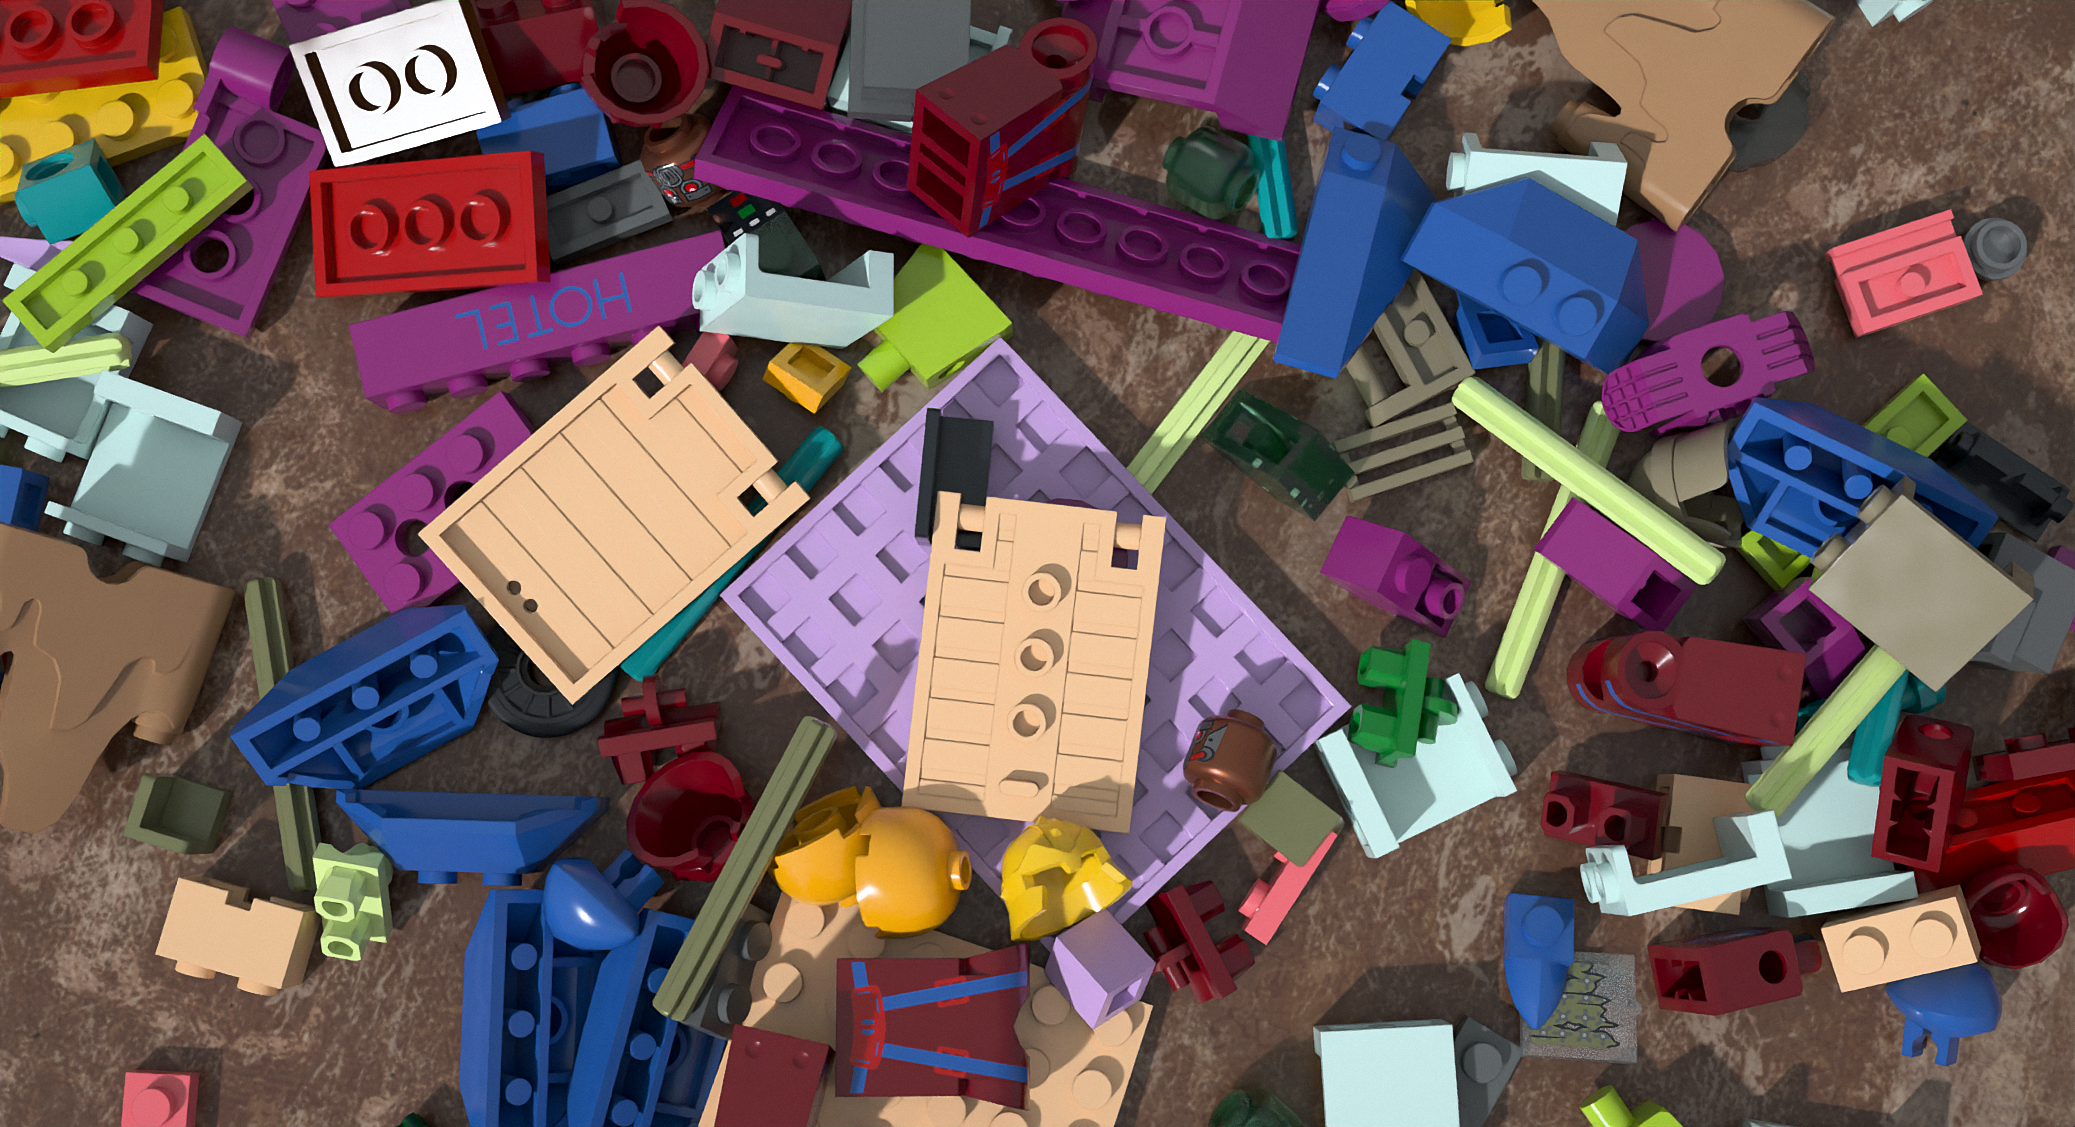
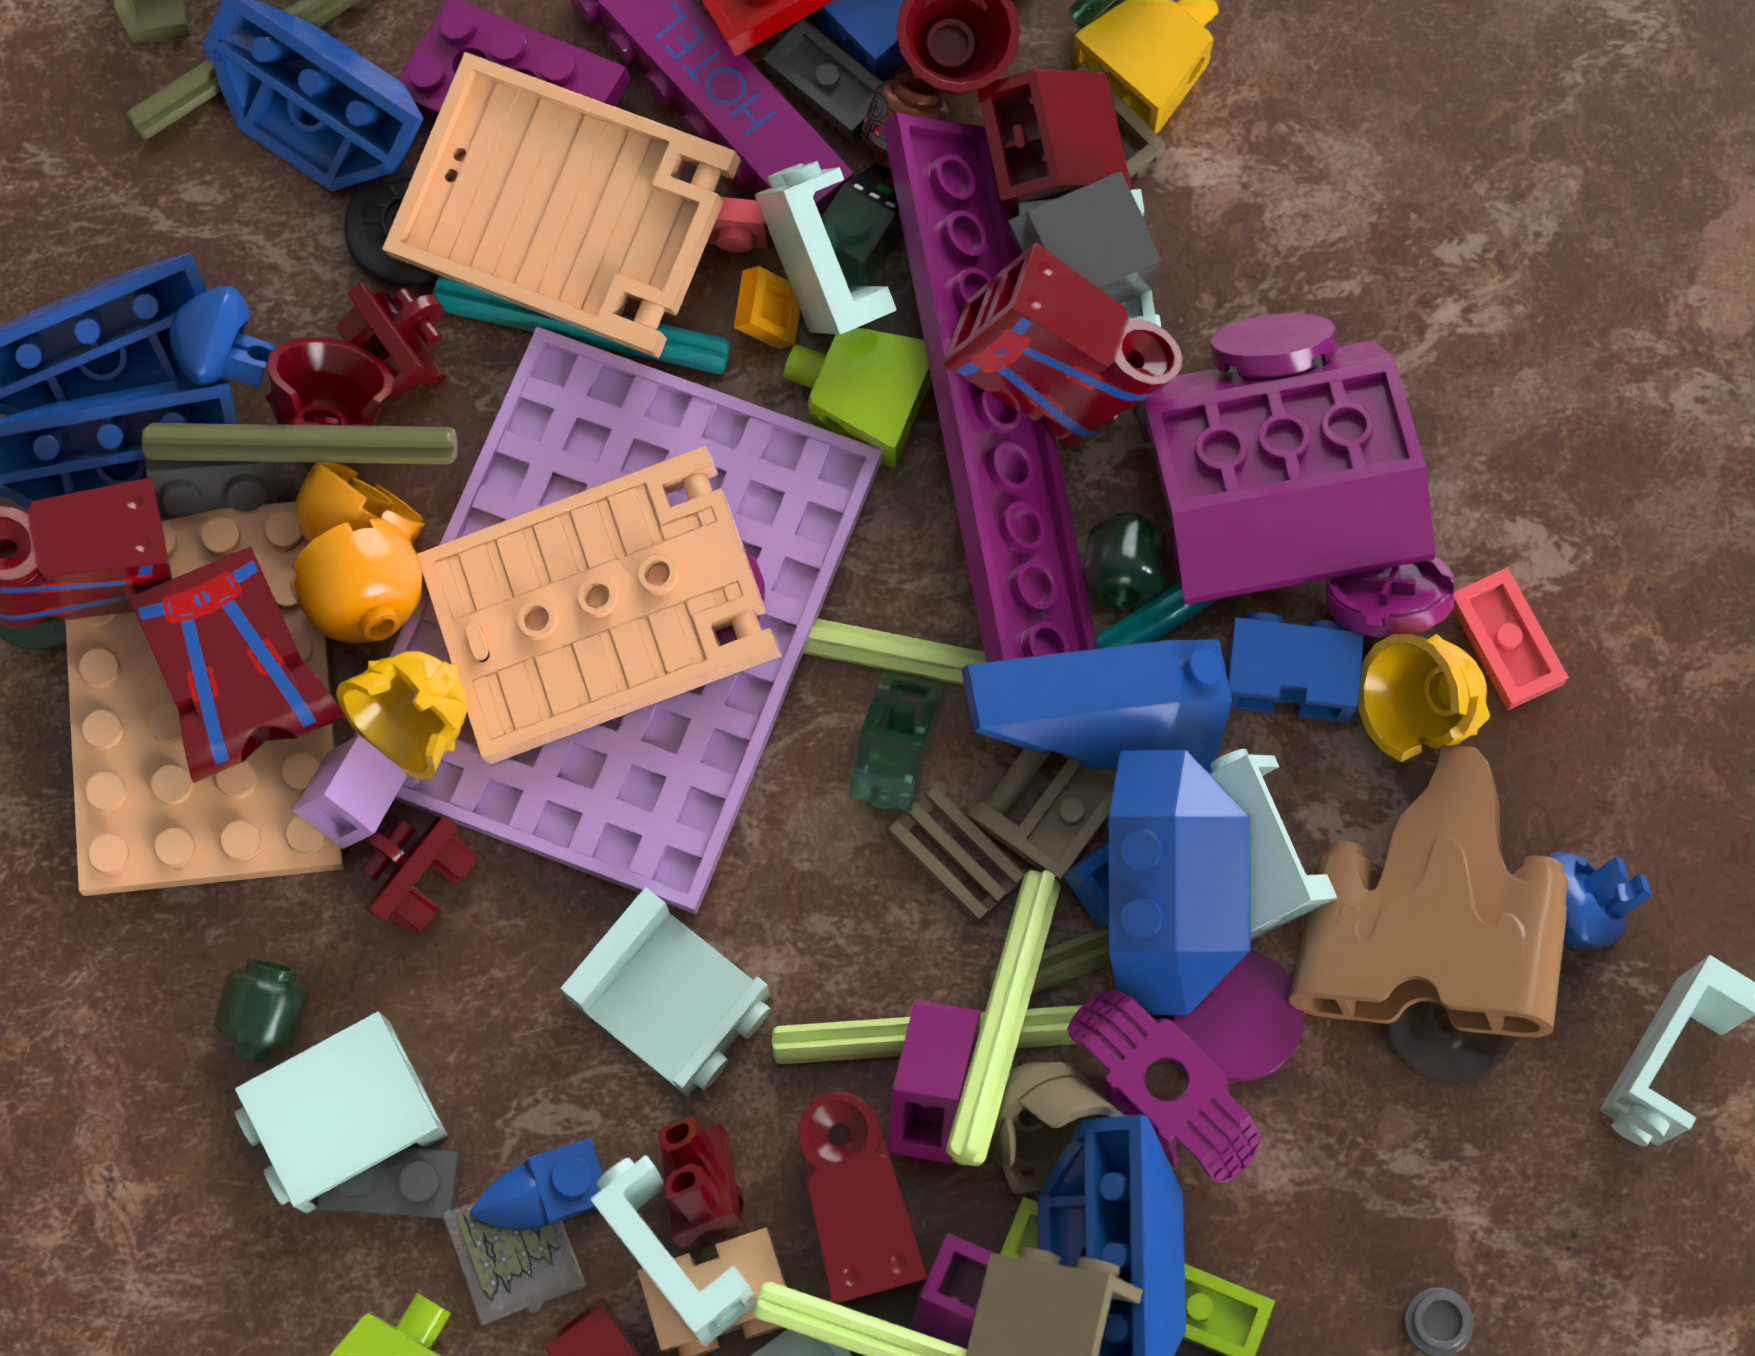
camera: 65 degrees right, 10 degrees down
(219, 931) = (68, 77): light nougat brick -> none
(352, 898) = (139, 157): yellowish green hips -> none
(470, 830) = (239, 226): blue wedge -> none
(955, 461) = (745, 450): black panel -> none
(1229, 760) = (588, 814): copper head -> none
(1270, 902) = (480, 921): coral plate -> none
(1291, 819) = (564, 899): olive panel -> none
(1396, 575) = (835, 897): magenta slope -> none
(1410, 706) = (744, 936): green hips -> none
(1903, 274) = (1366, 1241): coral plate -> none

